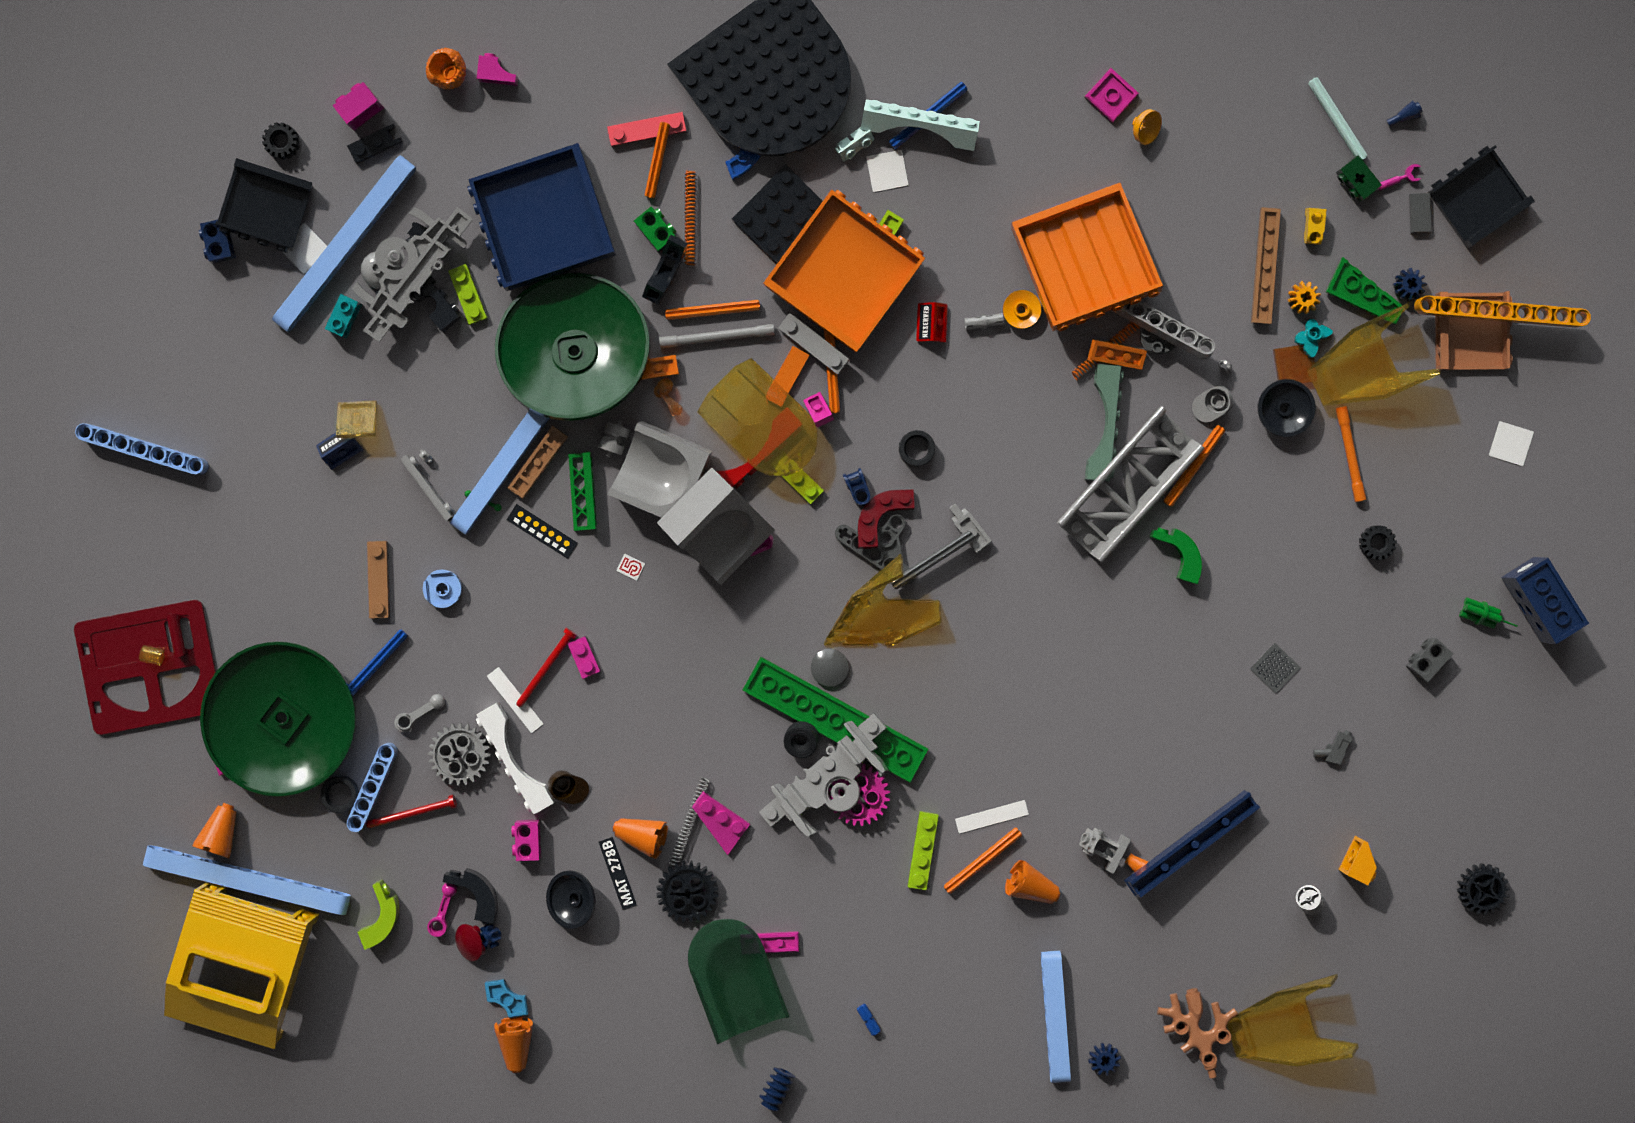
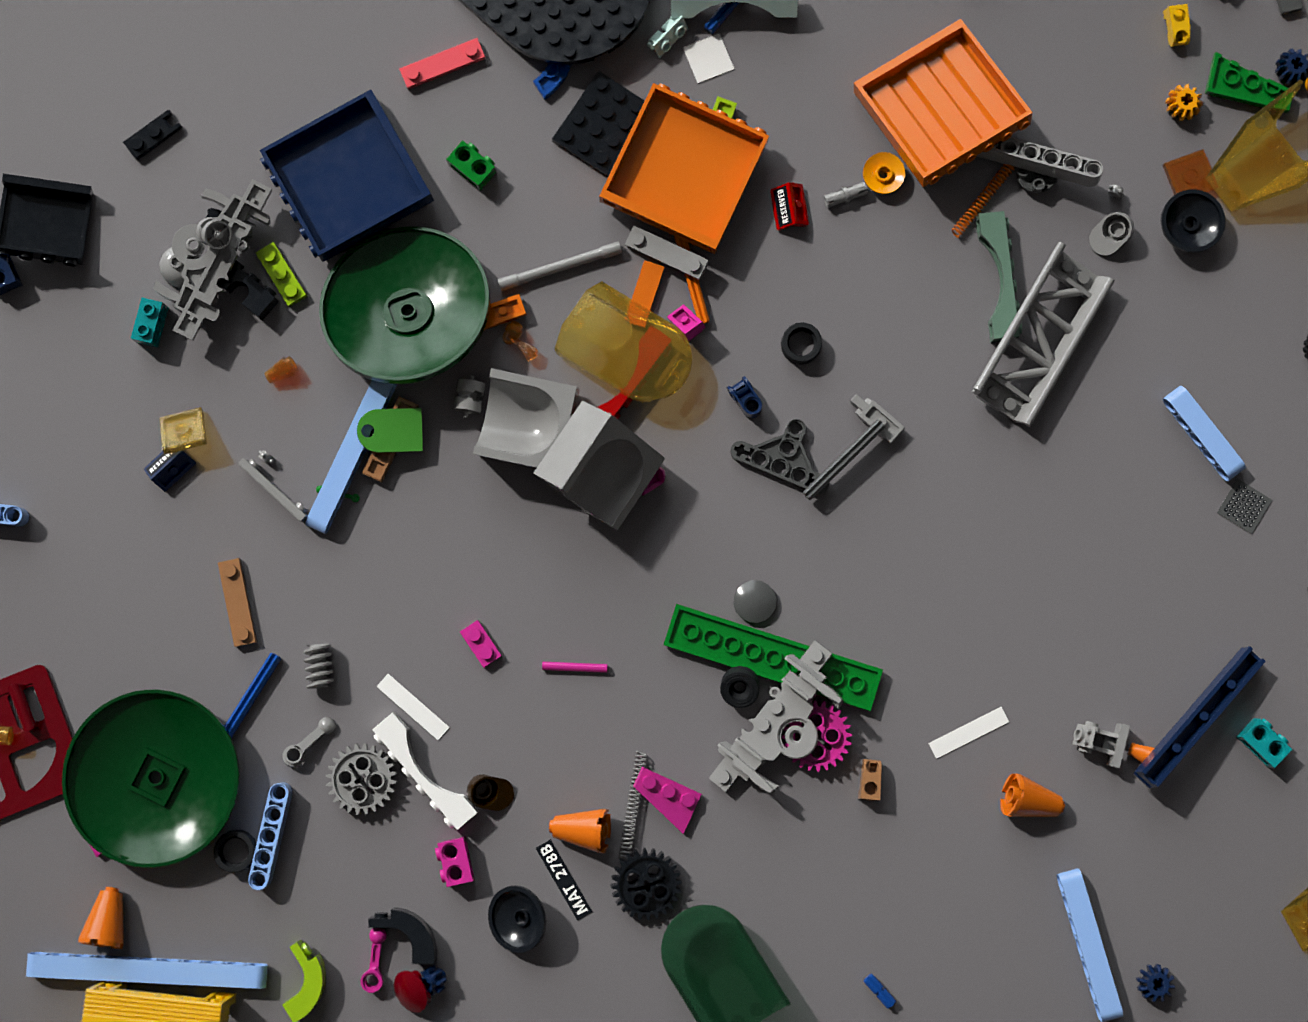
camera: 10 degrees left, 5 degrees down
(270, 135) = (41, 142): black tyre -> none
(306, 249) = (97, 261): white sticker -> none
(344, 243) = (136, 246): light blue beam -> none
(358, 106) = (127, 96): dark pink piece -> none
(415, 252) = (214, 233): none -> light grey wheel
(436, 597) = (305, 609): light blue plate -> none
(439, 649) = (318, 666): none -> light grey piece
(446, 69) = (215, 39): orange hair -> none
(450, 802) = (362, 835): red bar -> none
(453, 381) = (282, 369): none -> clear orange cone
(490, 71) = (266, 36): dark pink arch -> none
(542, 456) = (393, 430): none -> bright green tile
(542, 531) = (408, 514): black sticker -> none
(546, 666) = (459, 621): red bar -> none
(589, 491) = (452, 458): green fence -> none
(630, 567) = (513, 534): white sticker -> none
(657, 160) = (459, 92): orange axle -> none
(661, 693) = (578, 667): none -> dark pink bar
(666, 270) = (491, 205): black arch -> none
(689, 218) = (506, 147): orange piece -> none
(714, 309) = (549, 239): orange axle -> none
(780, 941) = (762, 921): dark pink tile -> none
(804, 485) = (685, 407): lime plate -> none
(875, 509) = (769, 418): dark red plate -> none
(875, 619) = (795, 538): clear yellow windscreen -> none
(897, 841) = (870, 780): none -> medium nougat leg
(922, 850) = (900, 785): lime plate -> none
(982, 860) = (969, 783): orange axle -> none
(1117, 354) = (997, 200): orange plate -> none
(1189, 473) = (1105, 308): orange axle -> none
(1189, 553) = (1120, 395): green arch -> none
(1197, 1038) = (1242, 922): nougat plant -> none
(1241, 878) = (1261, 747): none -> teal brick
(1253, 598) = (1204, 433): none -> light blue beam
(1265, 265) = (1135, 77): medium nougat plate -> none
(1312, 336) = (1202, 142): teal animal -> none
(1344, 423) = (1287, 289): orange piece -> none

